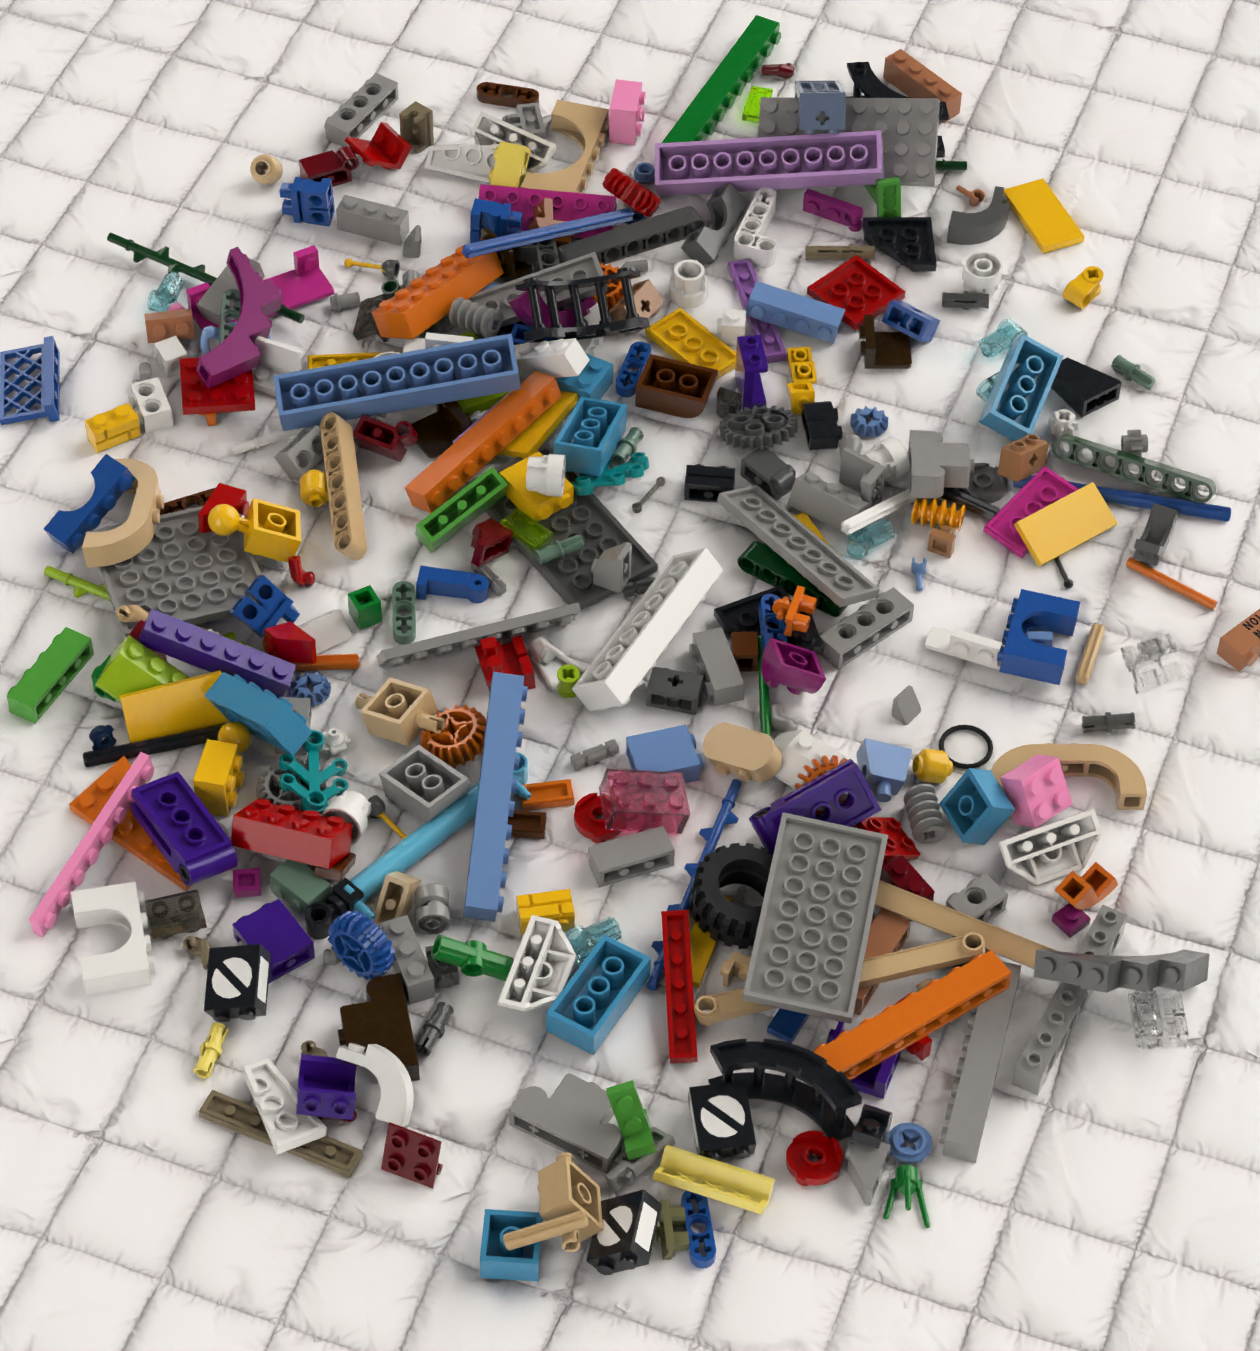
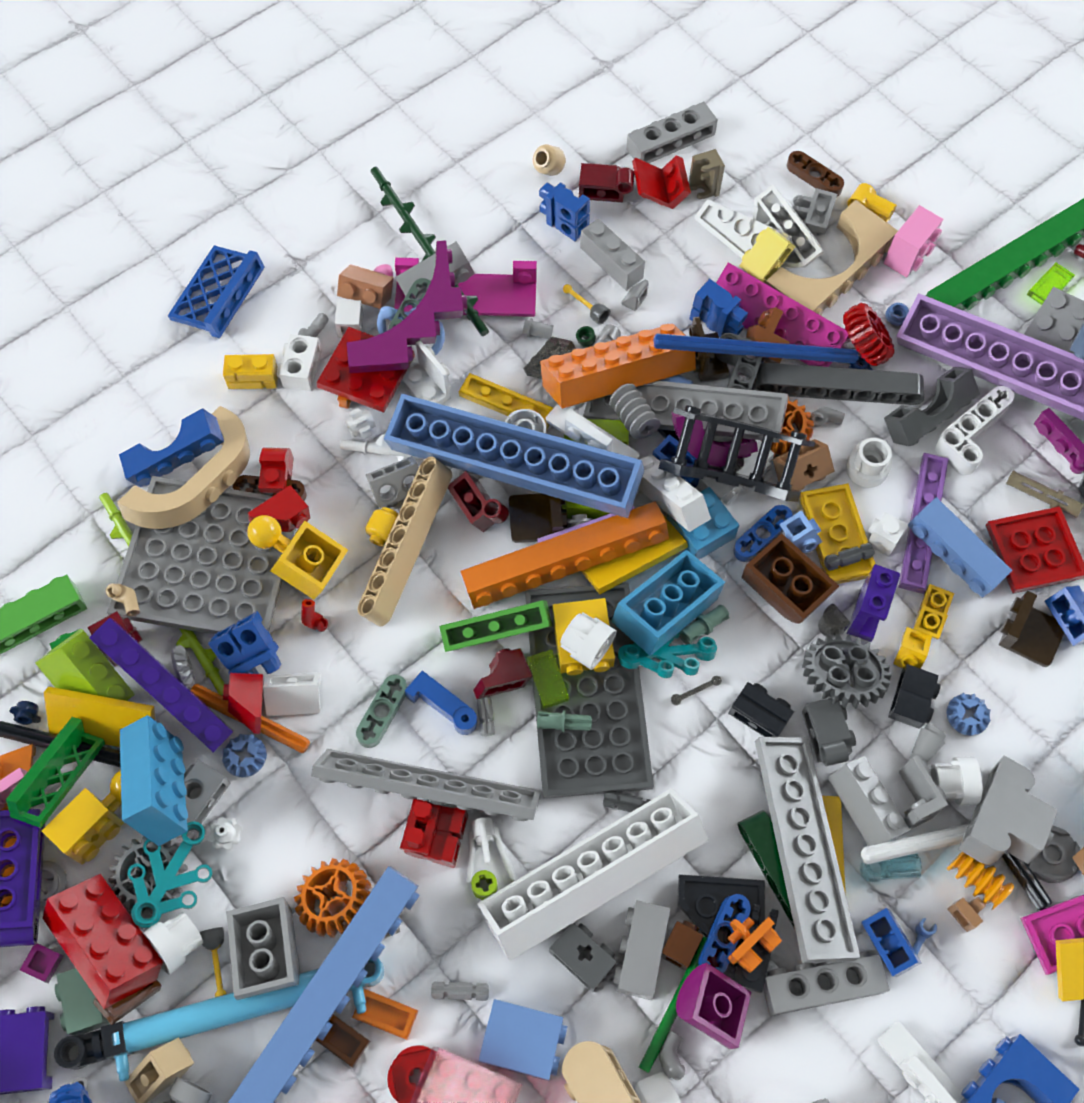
camera: 30 degrees right, 15 degrees up
(166, 751) = (45, 773): none -> green fence
(167, 292) = (386, 250): clear light blue piece -> none
(190, 483) = (275, 469): none -> red brick
(240, 426) = (360, 423): none -> white gear
(364, 607) = (342, 691): green brick -> none
(399, 711) = (296, 840): tan brick -> none
(564, 93) = (867, 197): none -> yellow piece
(613, 568) = (598, 777): light grey slope -> none
(665, 347) = (802, 532): none -> light blue brick
(713, 352) = (849, 556): none -> dark grey axle
(891, 573) = (891, 942): none -> blue brick

